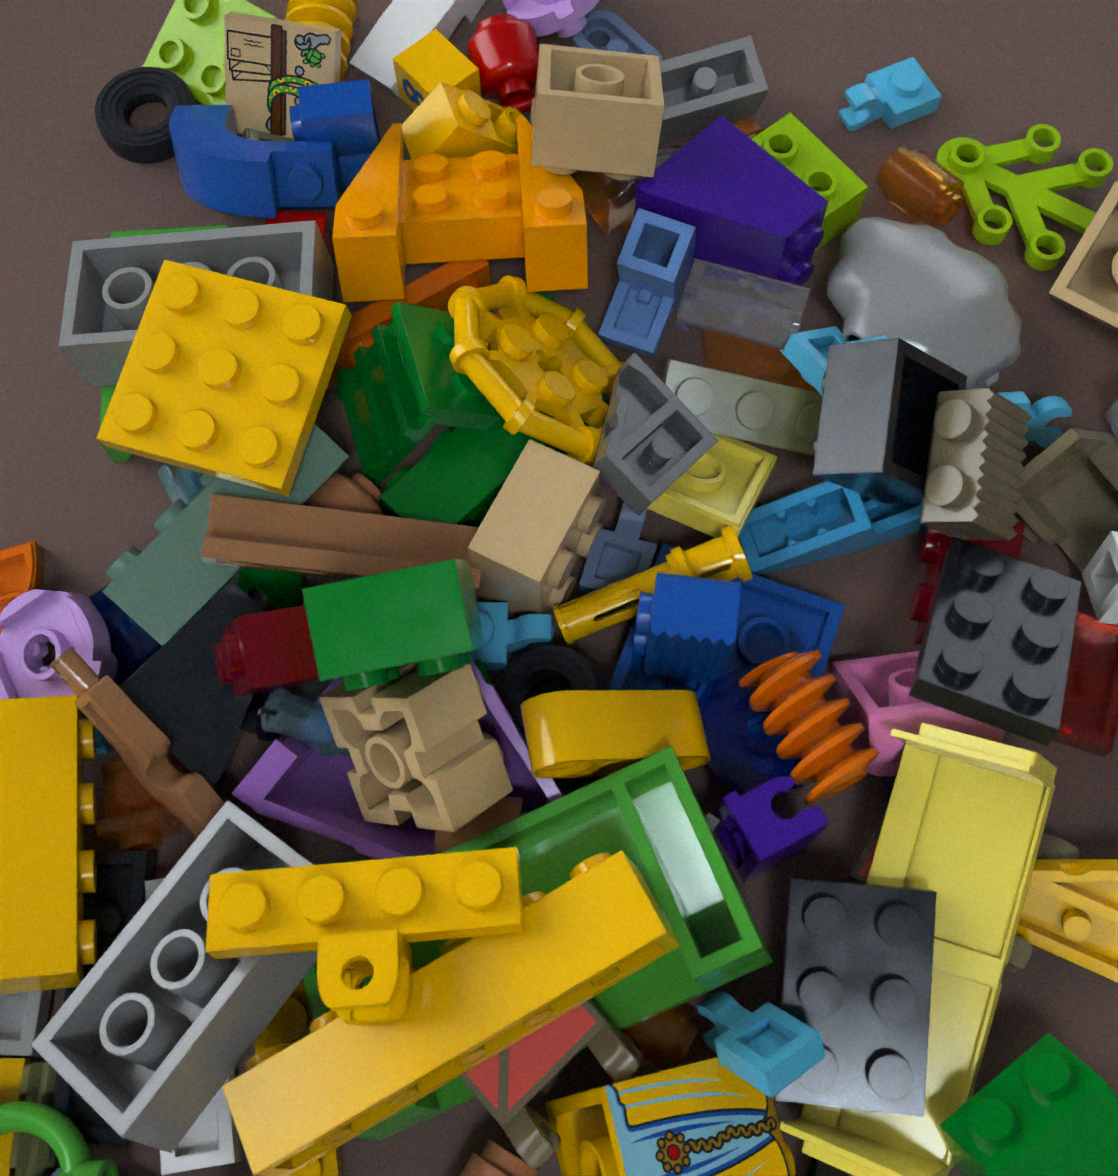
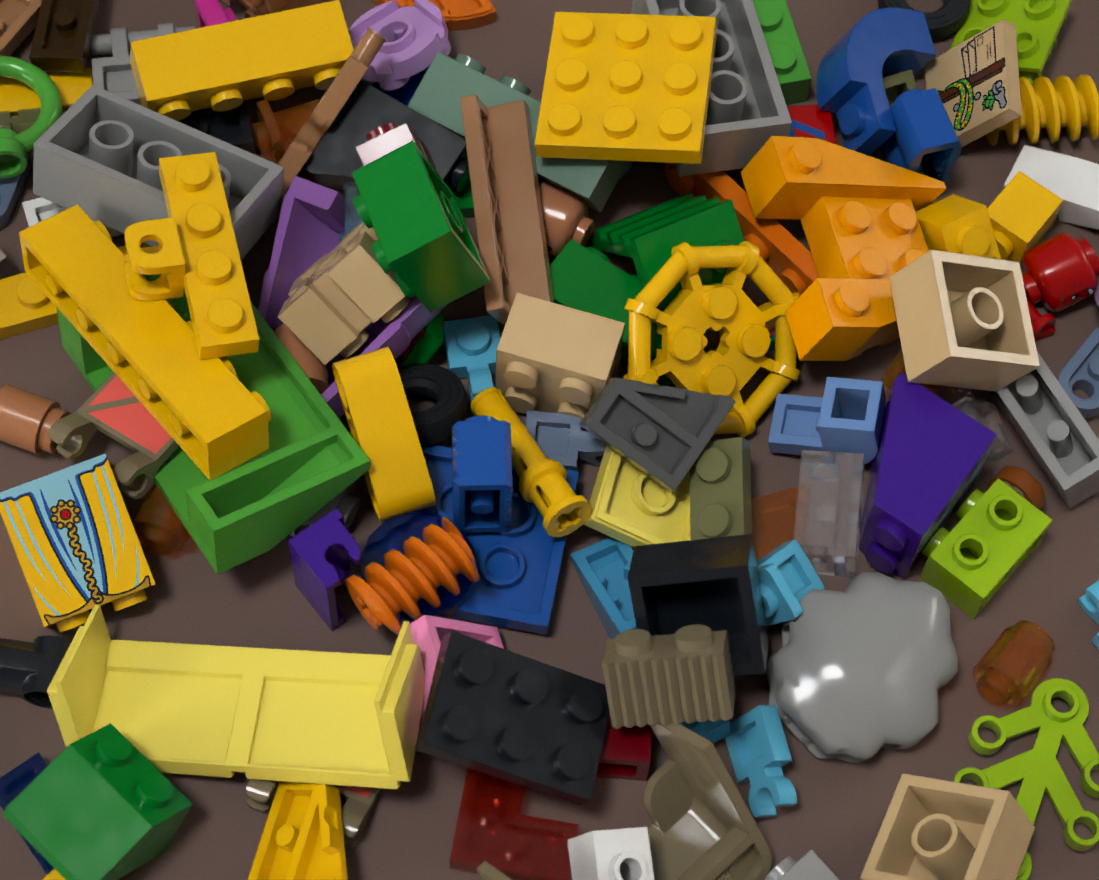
camera: 75 degrees right, 5 degrees down
(761, 1046) = (153, 575): medium azure plate -> none
(863, 979) = (206, 653): black plate -> none

